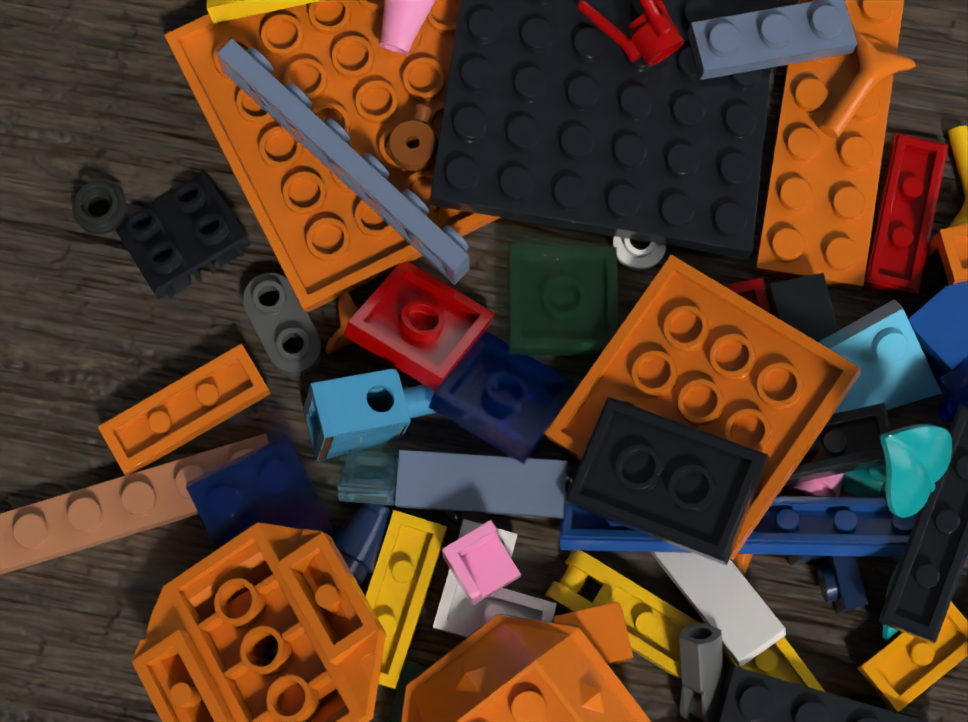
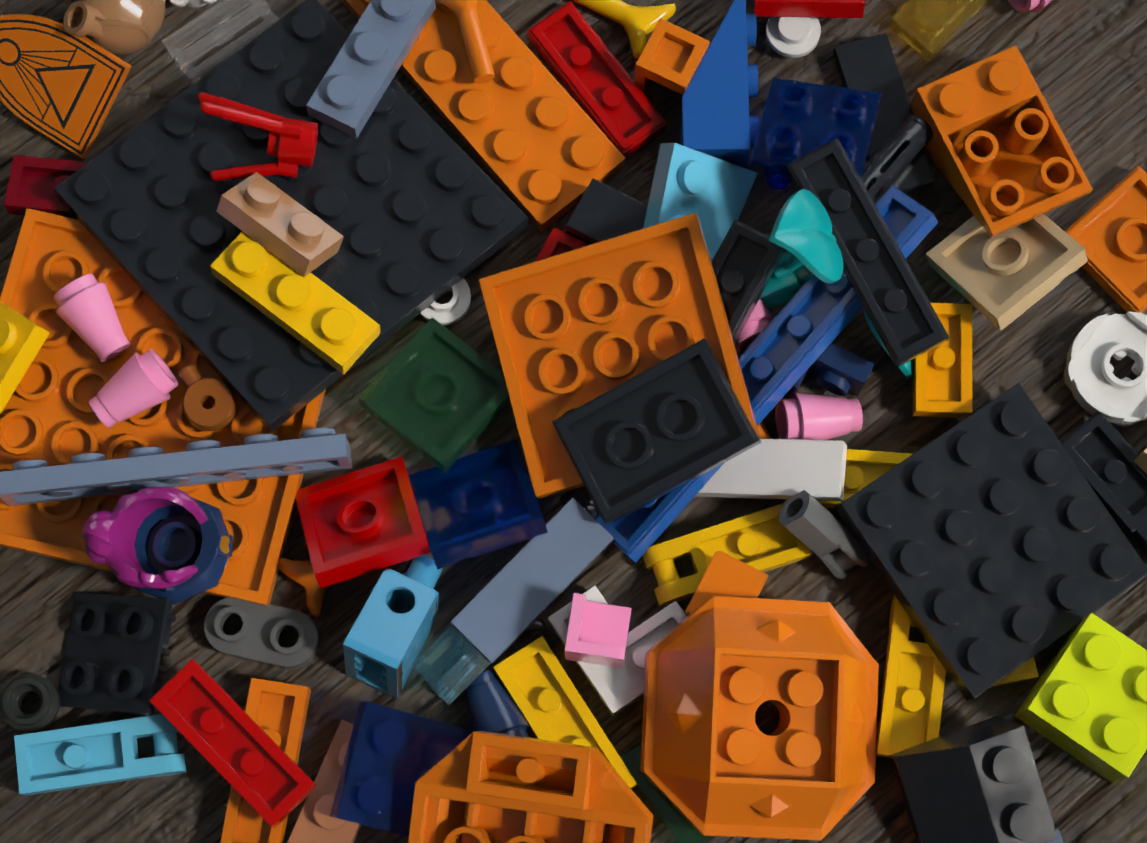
camera: 50 degrees left, 0 degrees up
(100, 284) = (95, 755): none -> medium azure plate
(181, 370) = (233, 743): none -> red plate
(281, 196) = (161, 543): none -> piece
(378, 83) = (134, 388): none -> bright pink cone
(538, 137) = (296, 303): none -> yellow plate
(584, 78) = (280, 224): none -> medium nougat plate
(790, 595) = (817, 417): none -> bright pink cone

